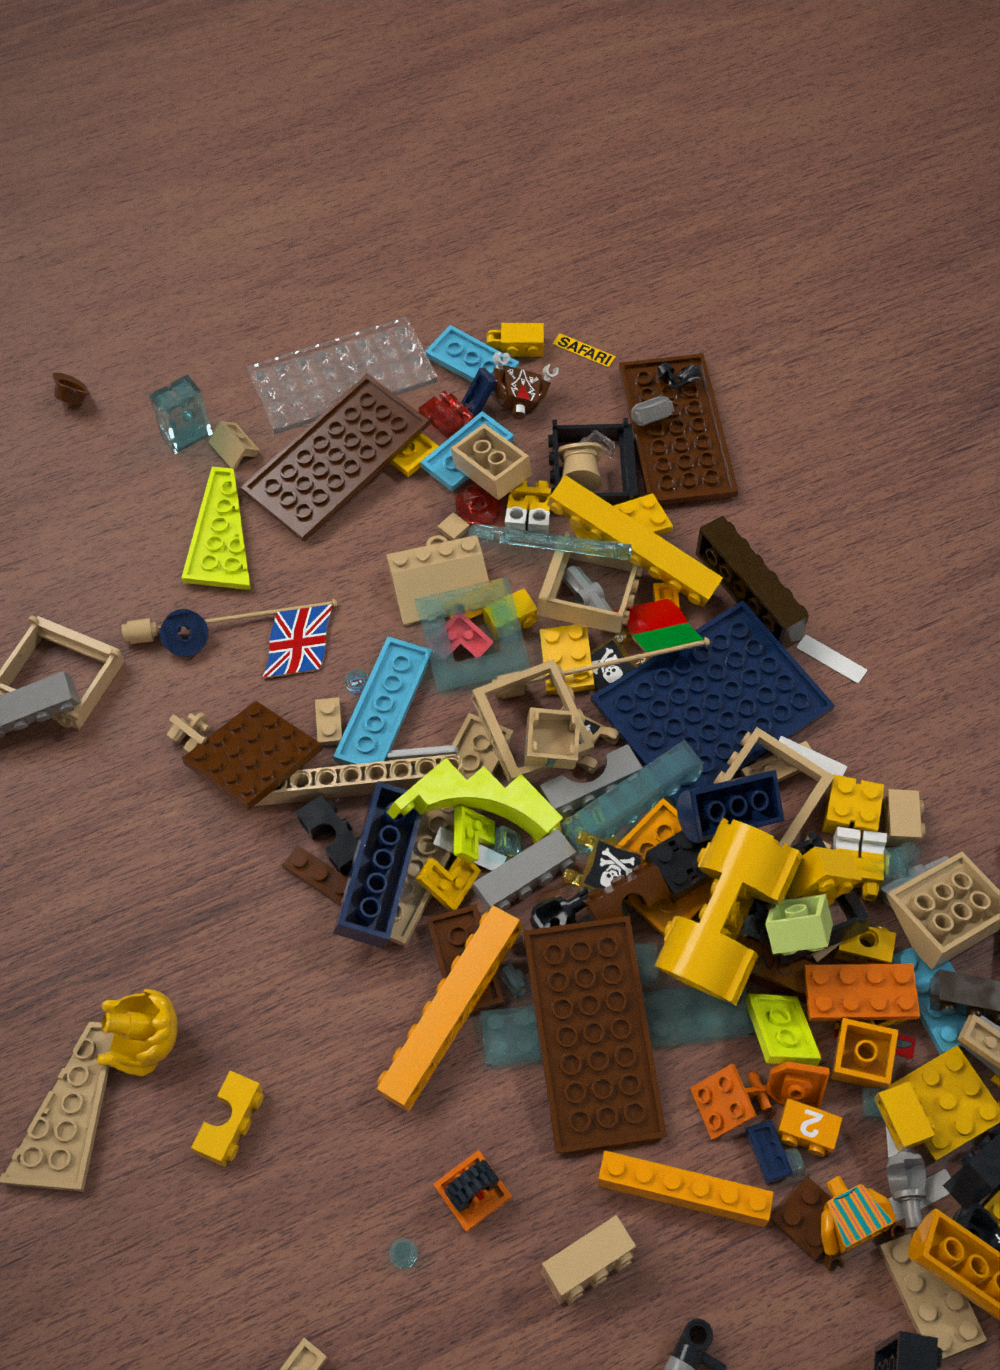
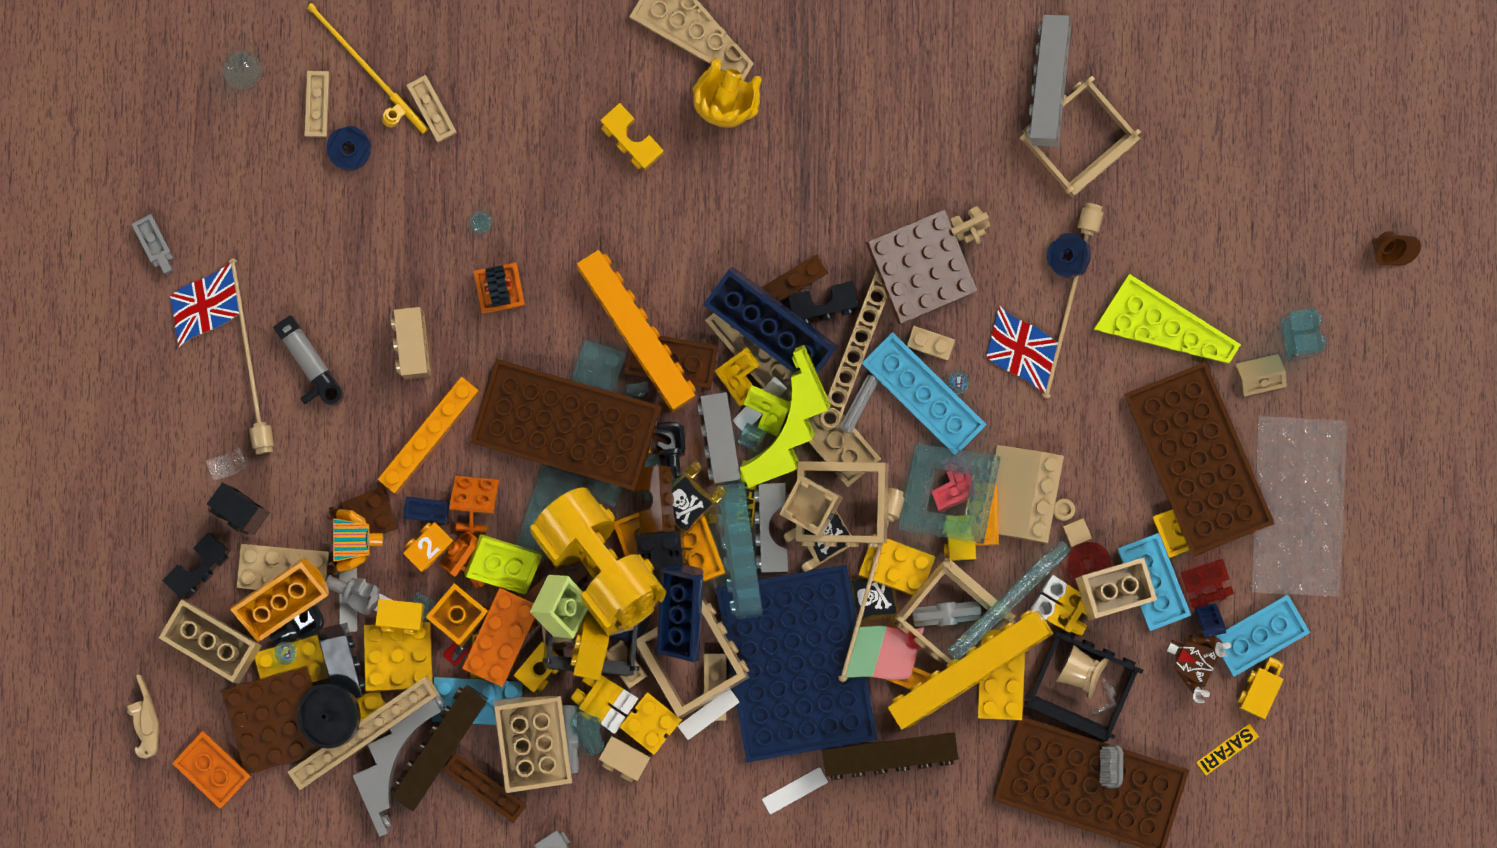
camera: 115 degrees right, 25 degrees up
(689, 374) = (1139, 825): black piece -> none
(795, 1161) = (410, 523): clear light blue tile -> none

